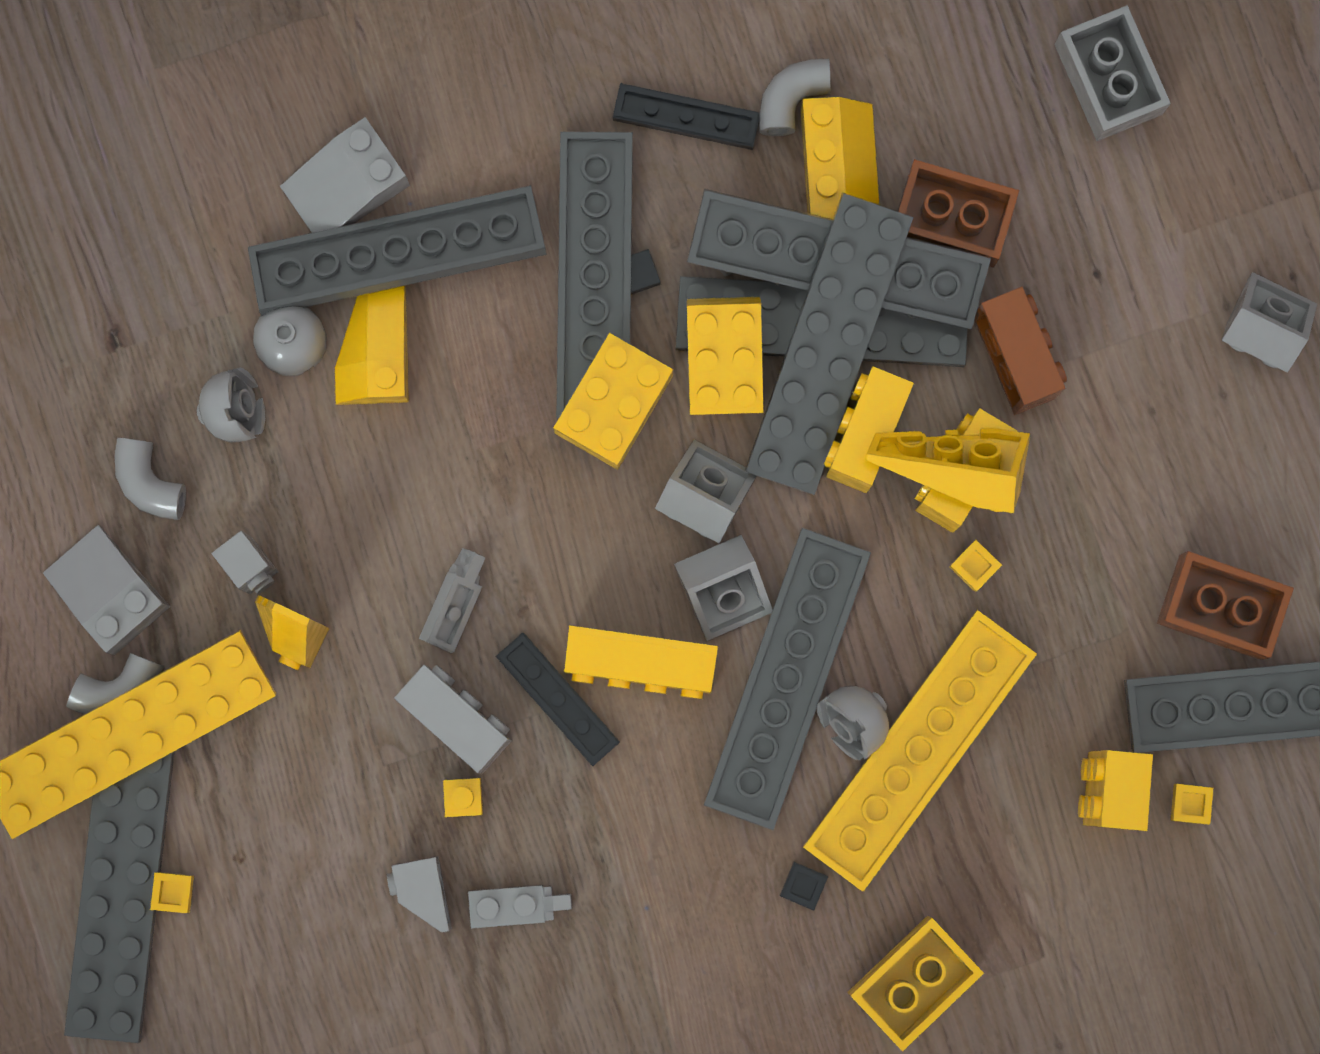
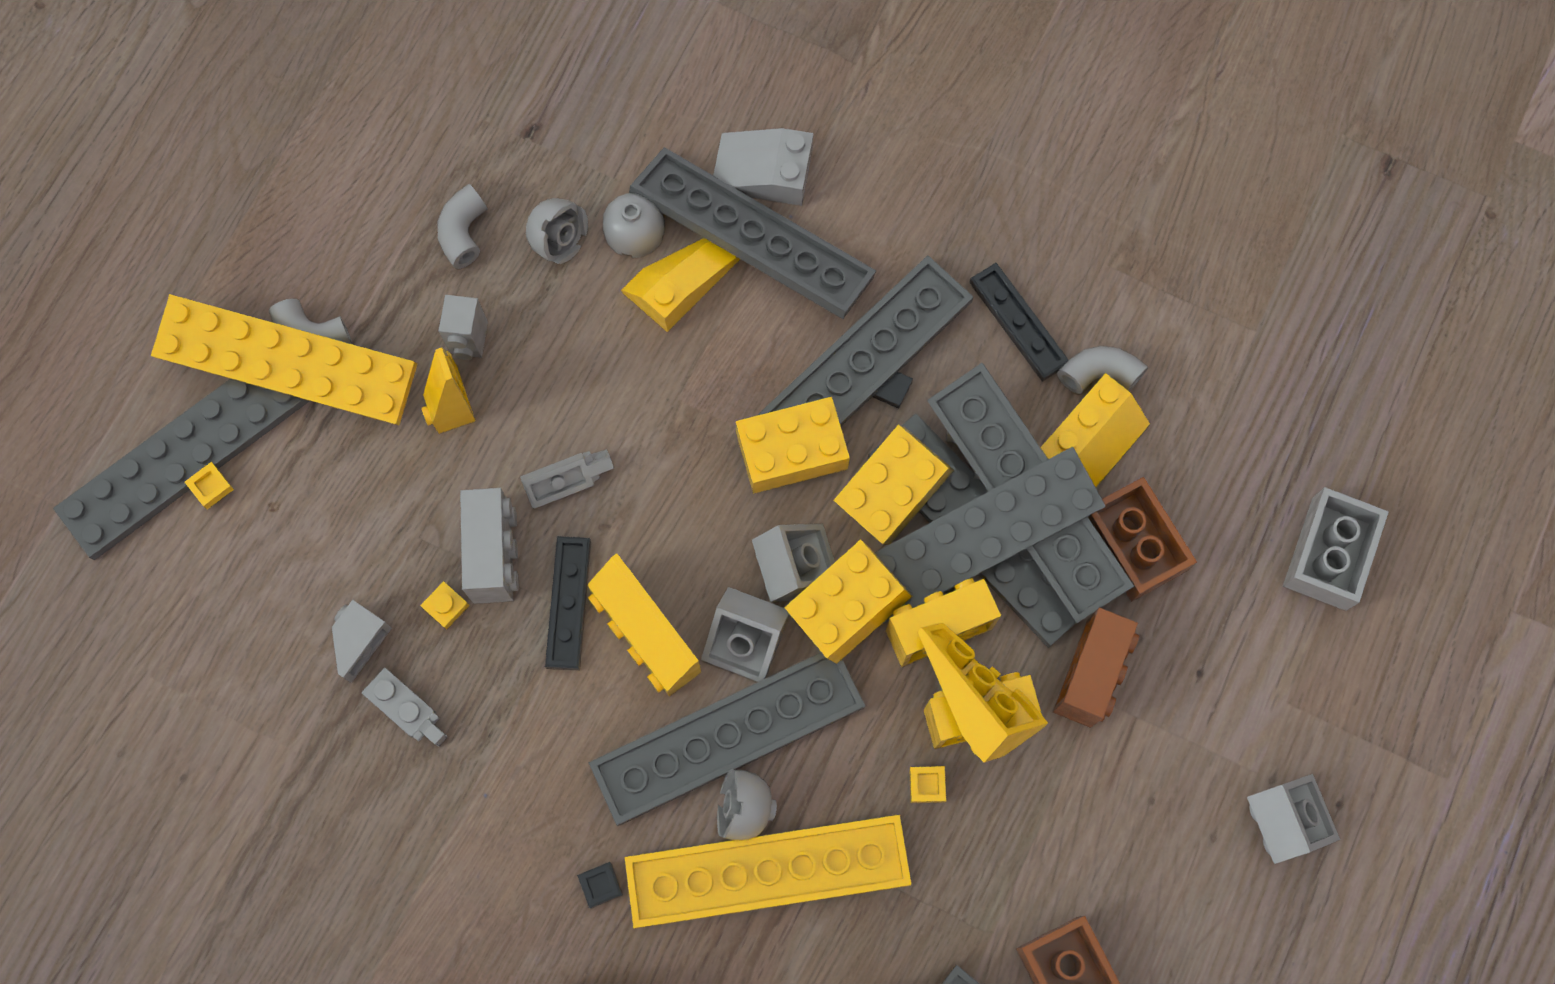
camera: 45 degrees right, 10 degrees down
(105, 591) = (366, 270): light grey slope -> none
(783, 485) = (848, 602): none -> yellow brick

